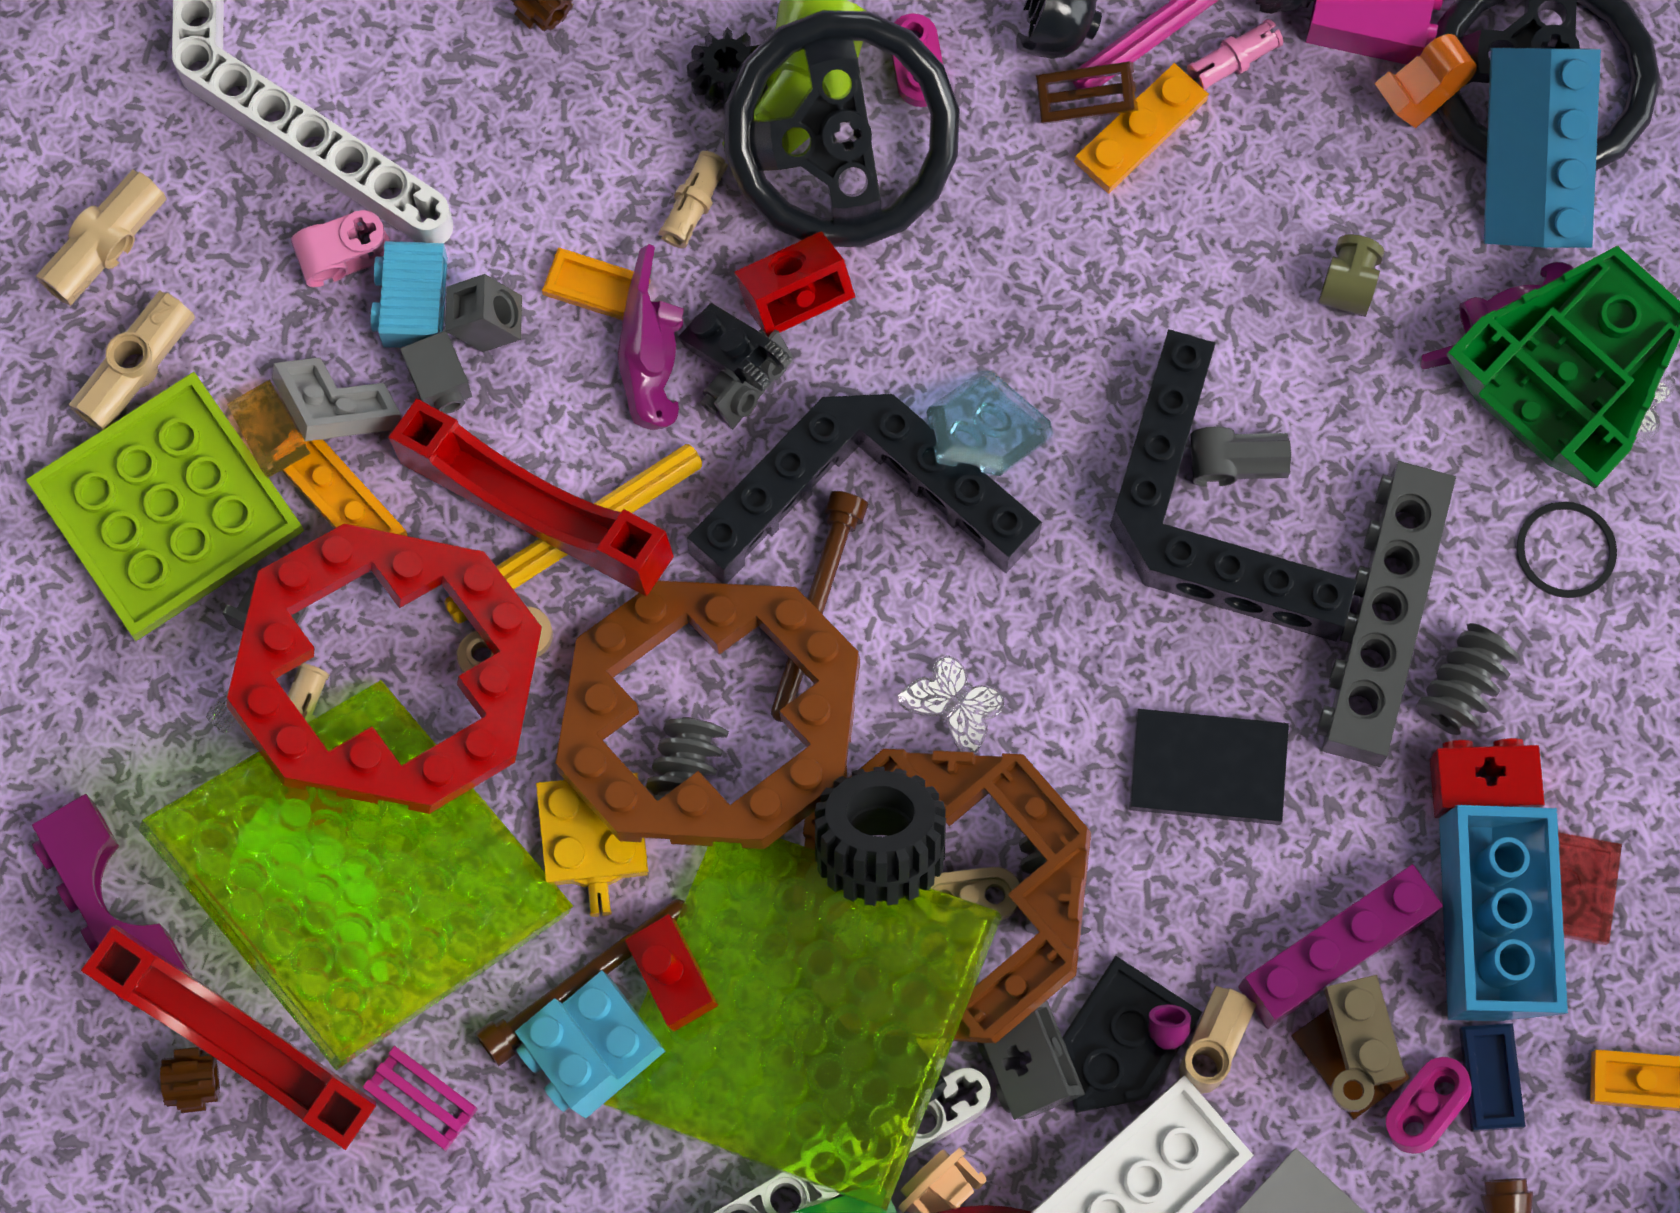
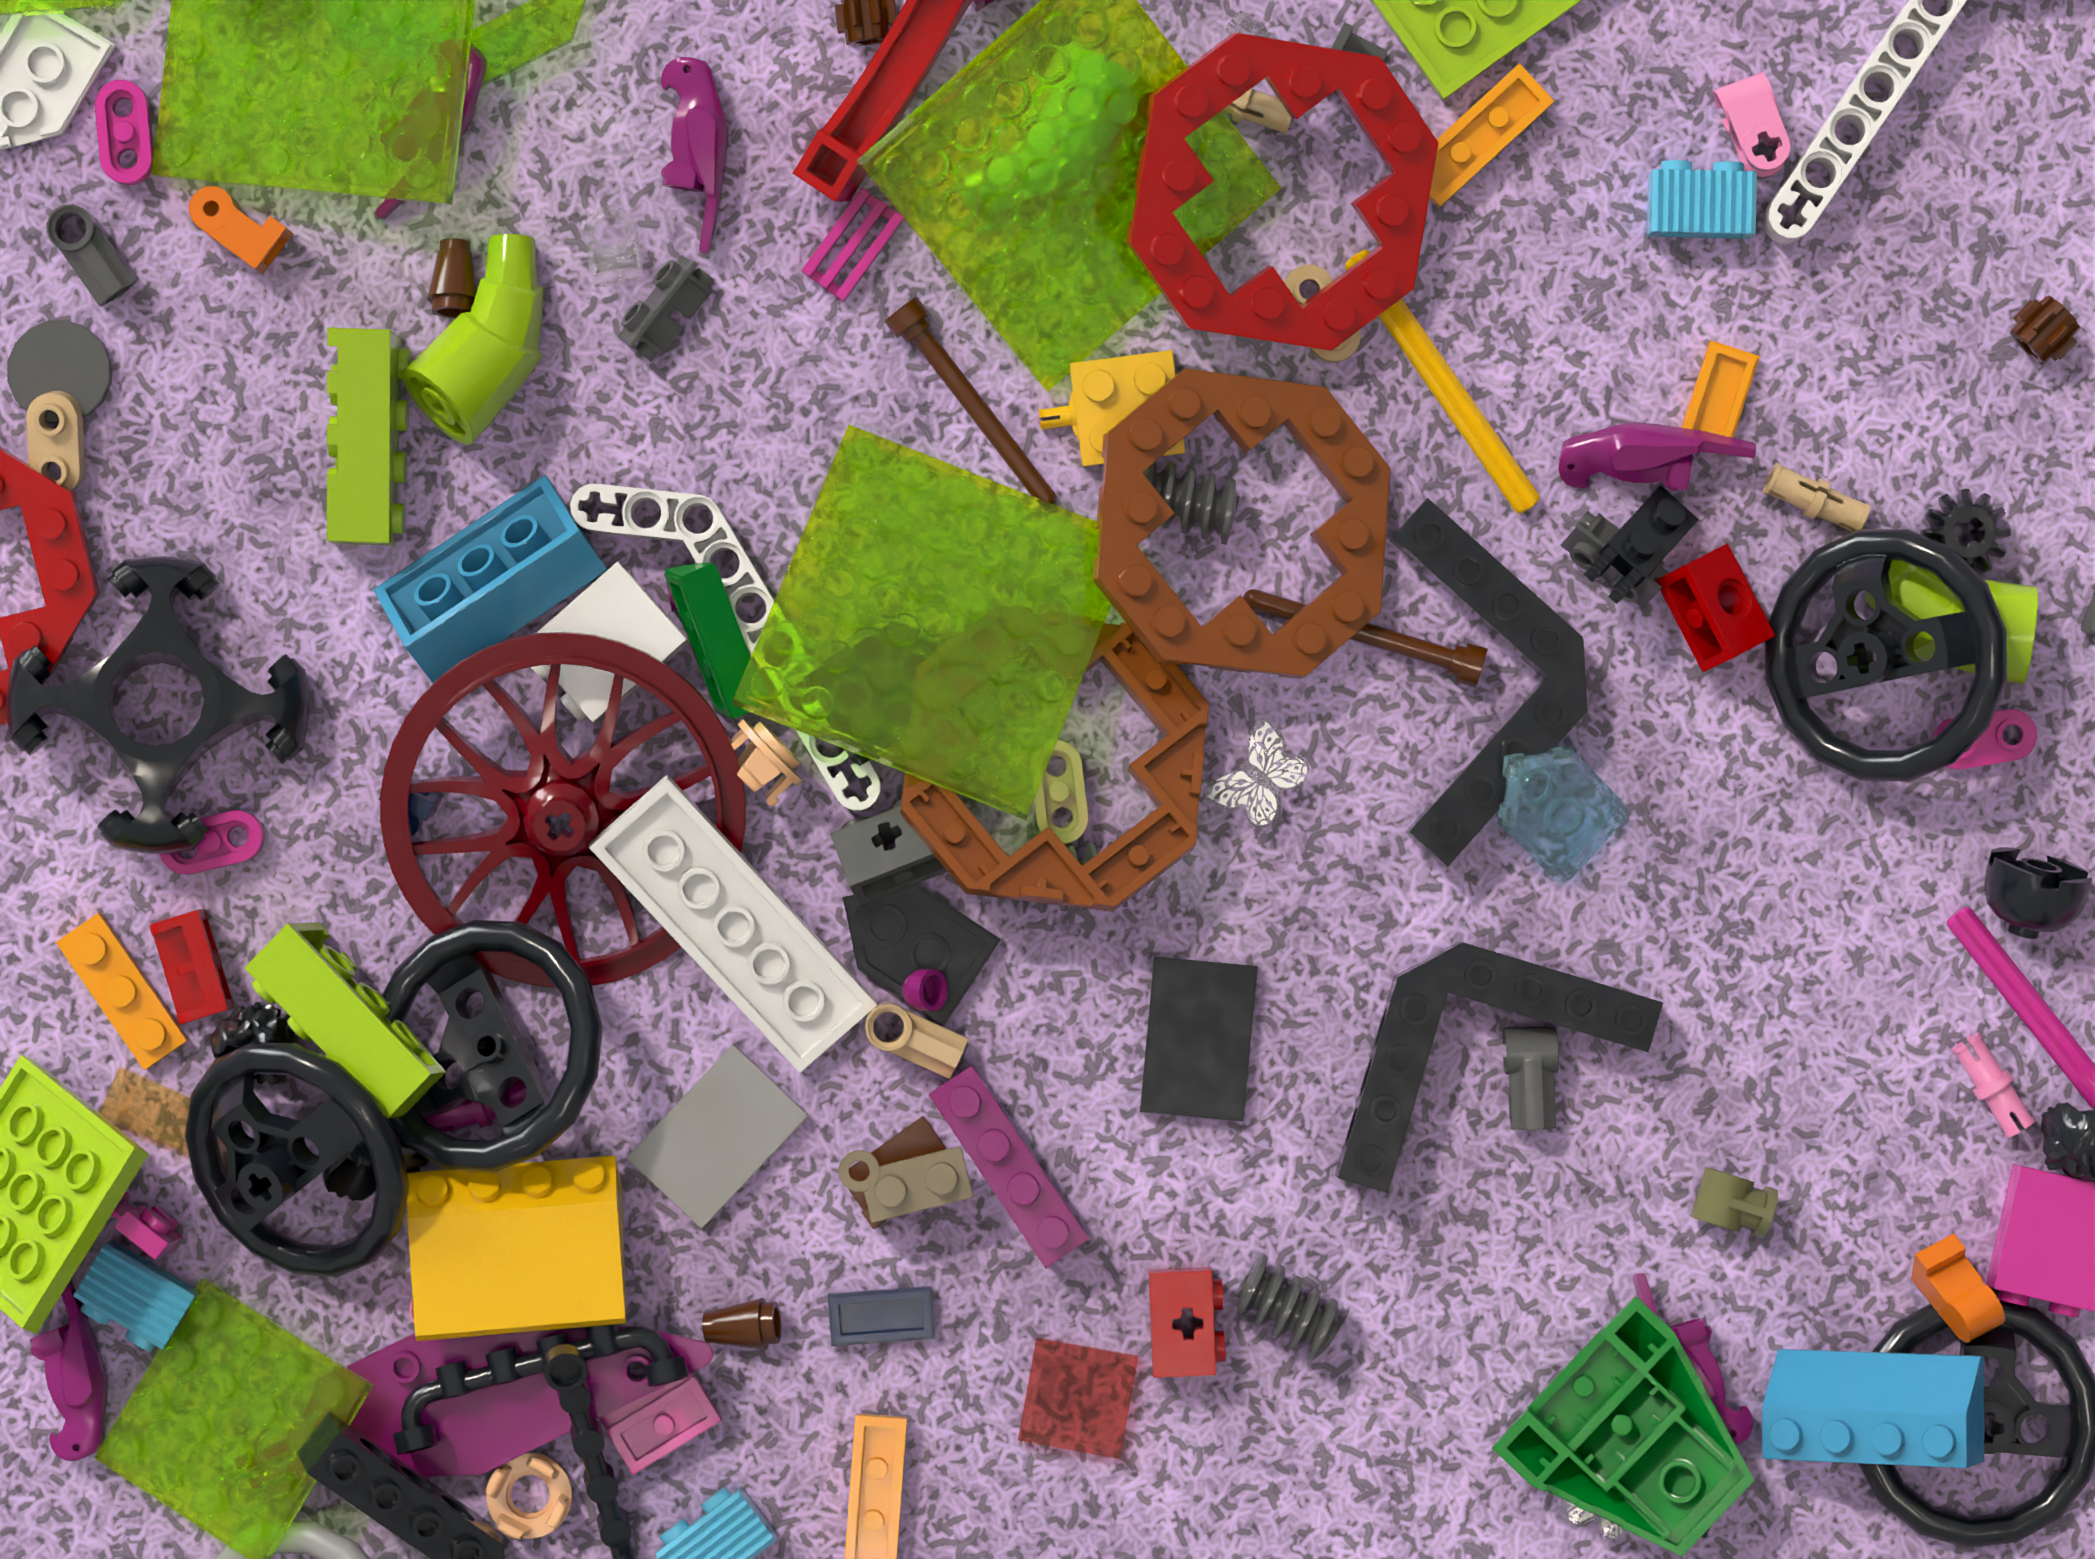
camera: 90 degrees right, 15 degrees up
(268, 428) = (1549, 58): clear yellow tile -> none
(329, 411) = (1566, 123): light grey plate -> none
(437, 373) = (1611, 232): dark grey brick -> none
(483, 313) = (1677, 279): dark grey brick -> none
(588, 1045) = (902, 409): medium azure plate -> none
(600, 537) = (1468, 334): red arch -> none
(671, 972) = (974, 490): red tile -> none
(884, 865) = (1139, 690): black tyre -> none
(1126, 88) = (1945, 963): reddish brown tile -> none
(1138, 133) = (1907, 981): light orange plate -> none
(1425, 1106) = (853, 1246): dark pink plate -> none
(1426, 497) = (1485, 1275): dark grey brick -> none
(1502, 913) = (1042, 1330): dark azure slope -> none
(1586, 511) = (1441, 1467): black piece -> none

